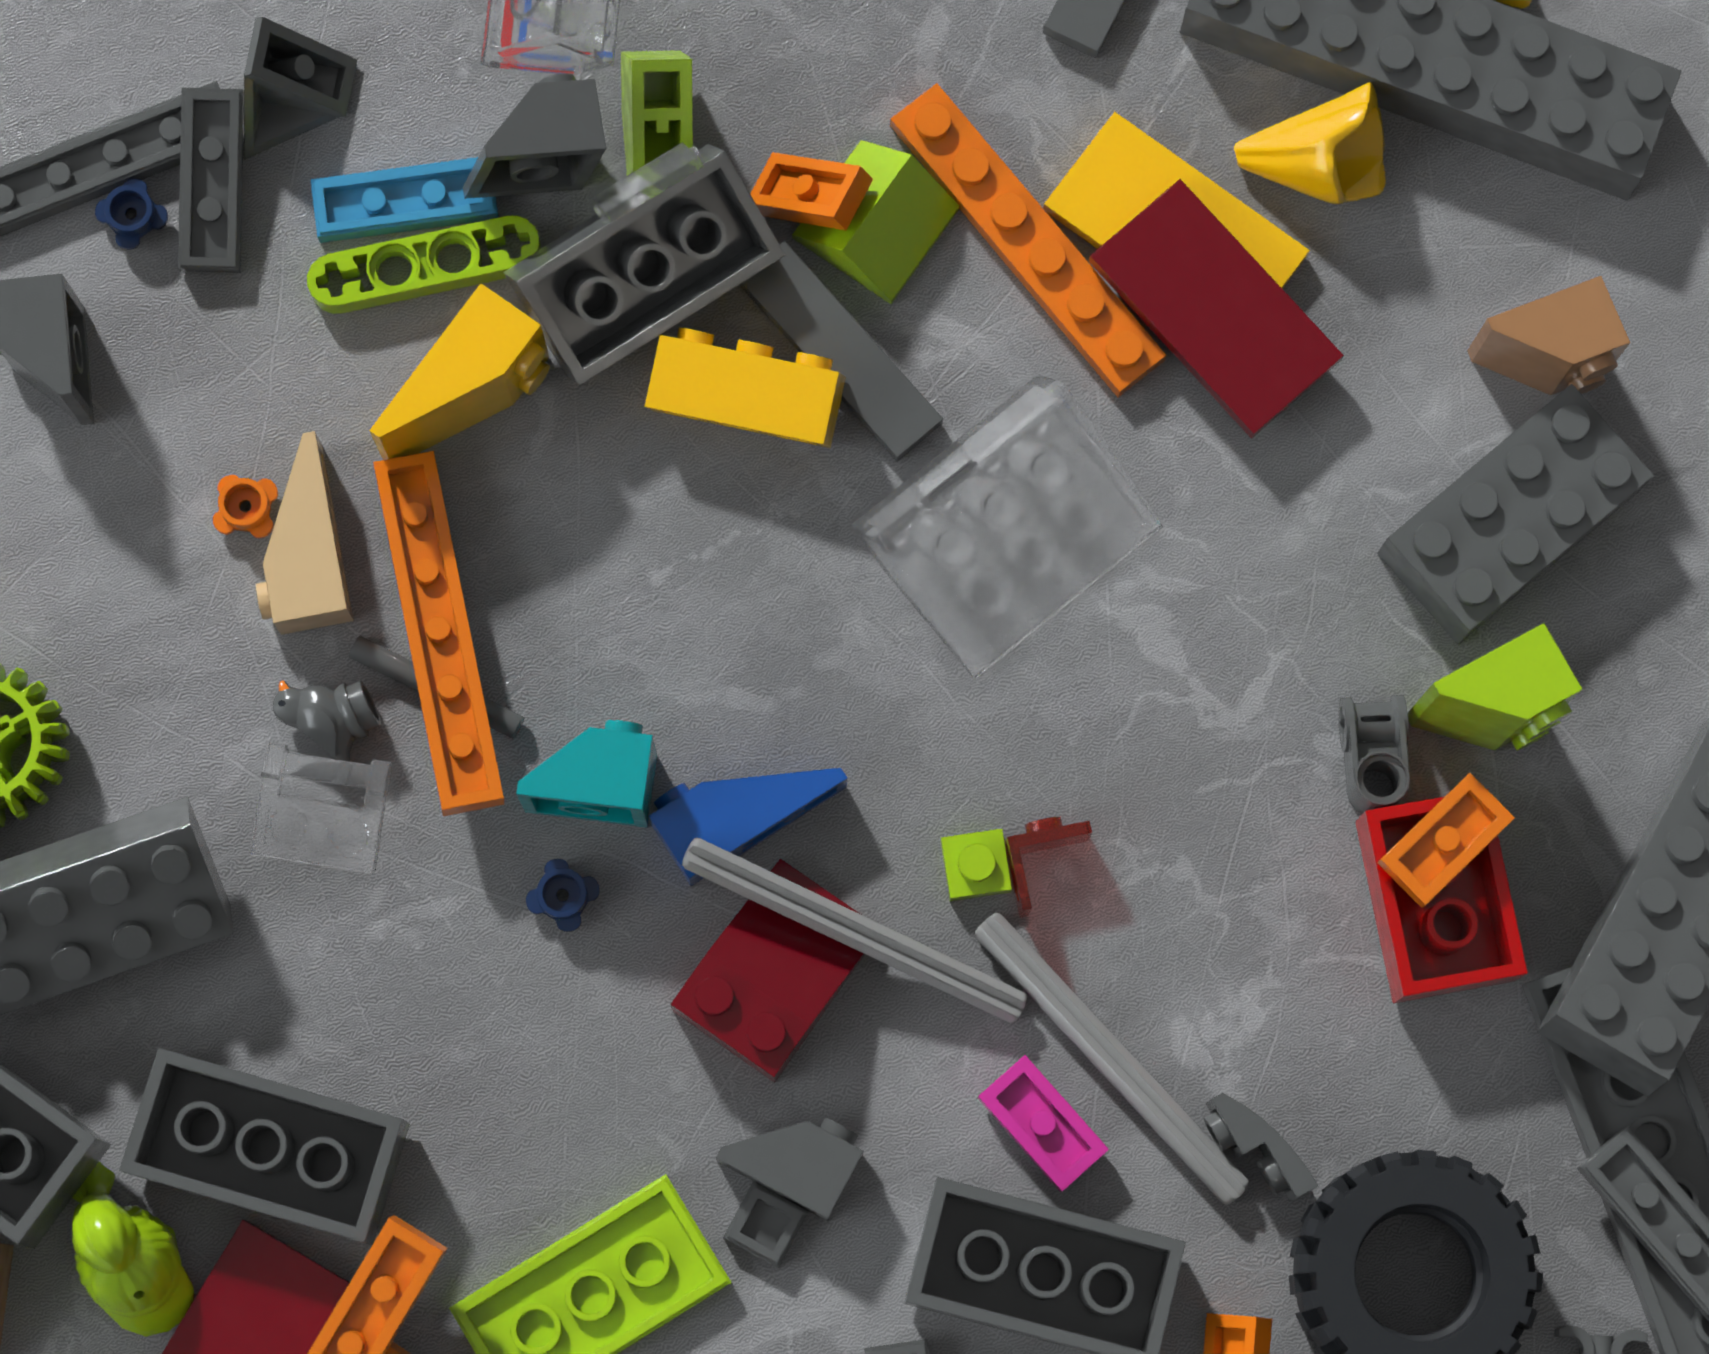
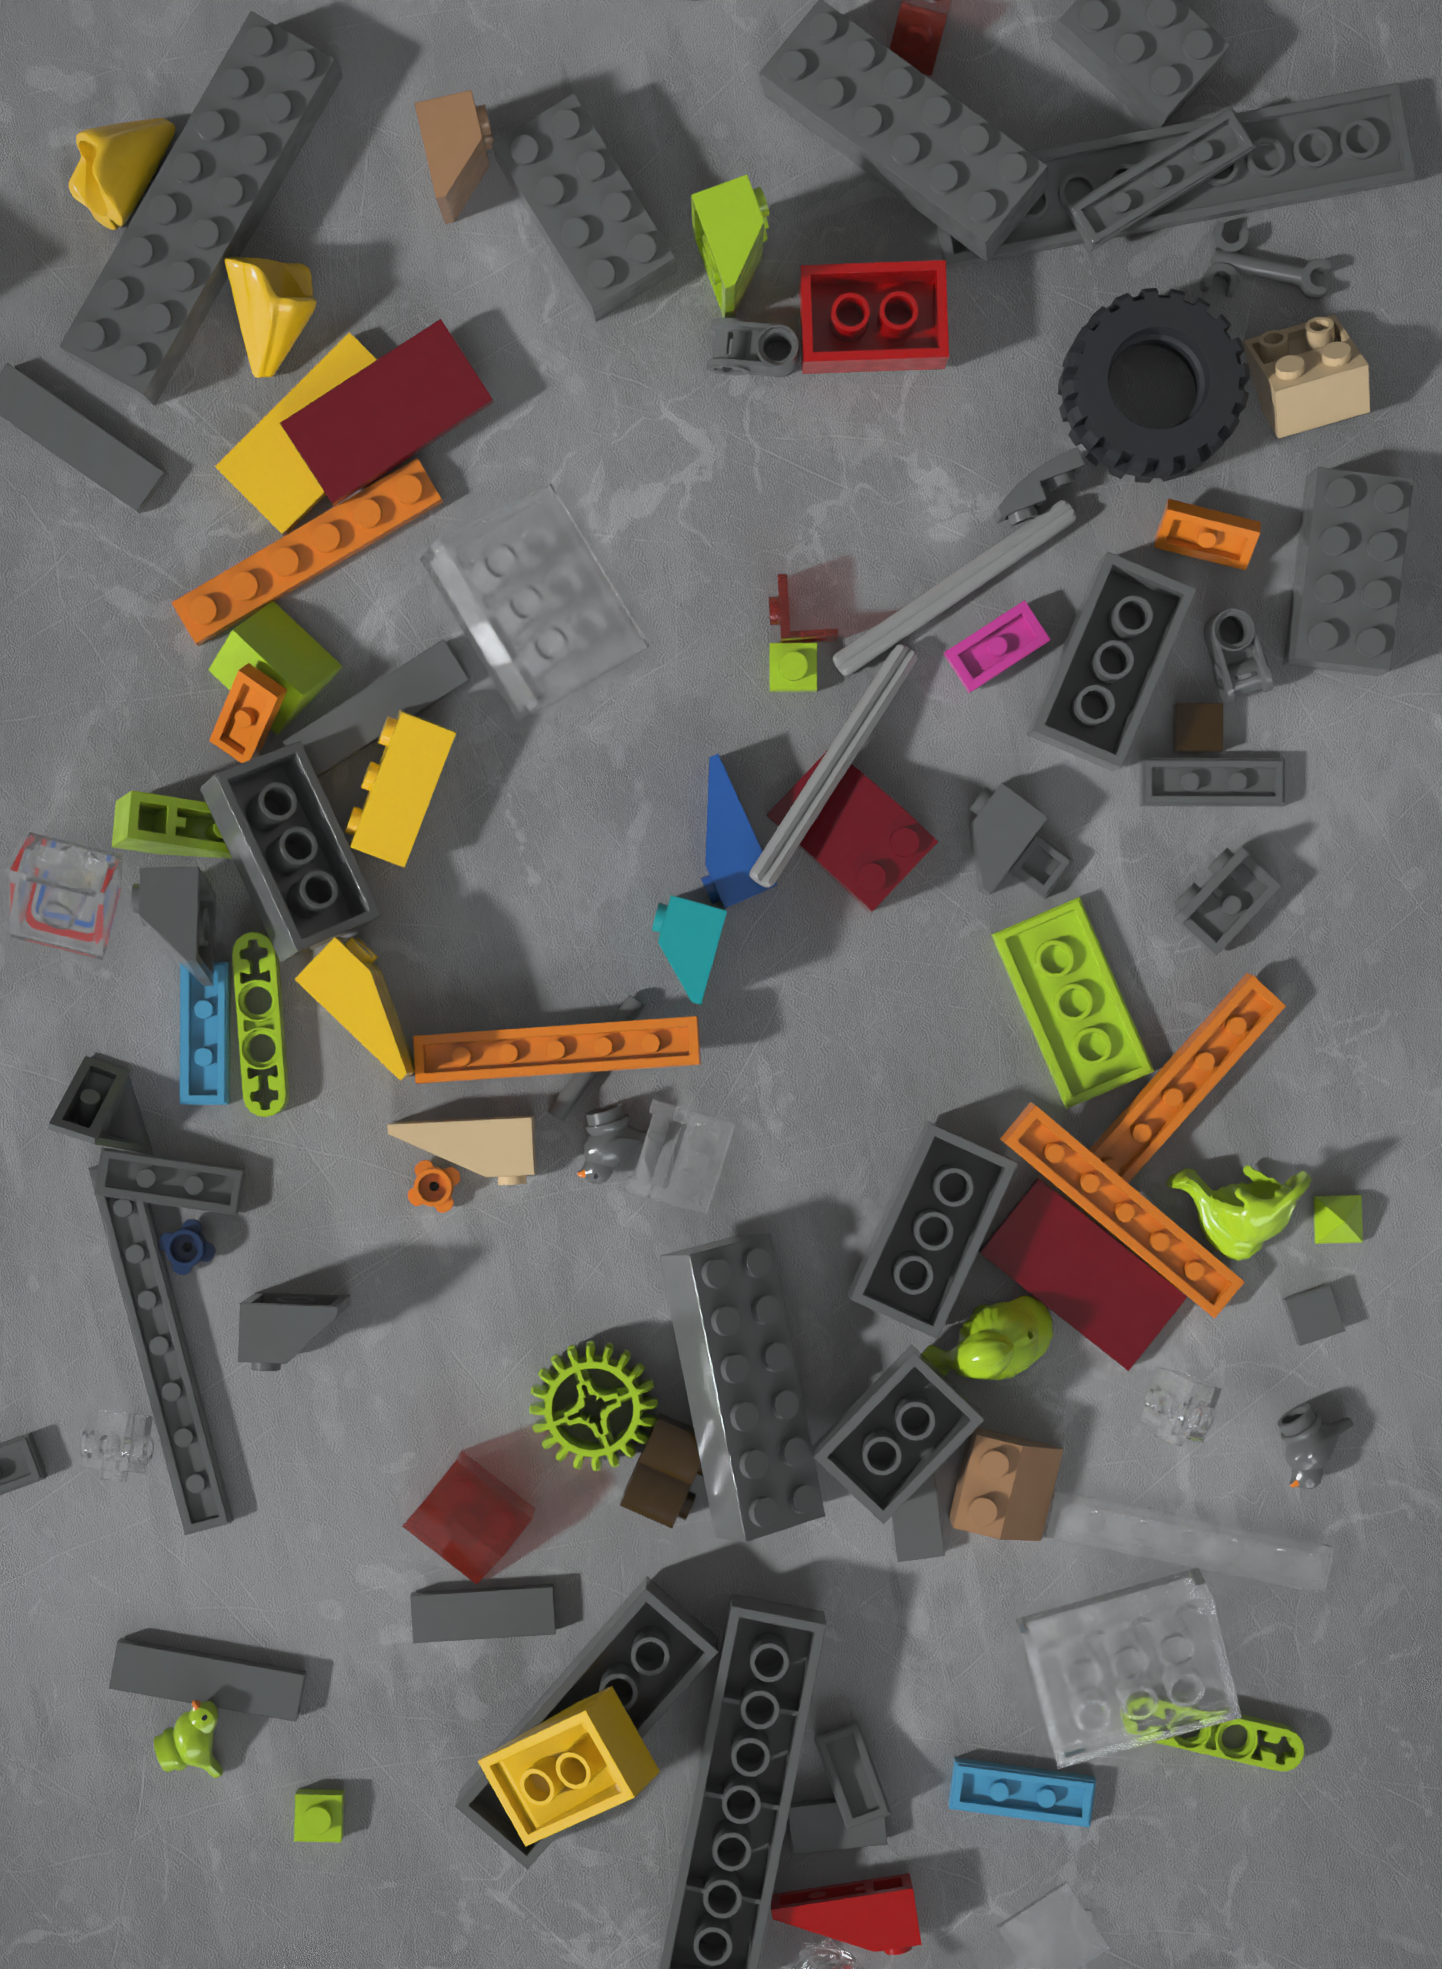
camera: 85 degrees left, 10 degrees up
(557, 878) = (784, 983): dark blue plate -> none
(647, 182) = (228, 839): clear piece -> none
(1446, 840) = (838, 303): orange plate -> none

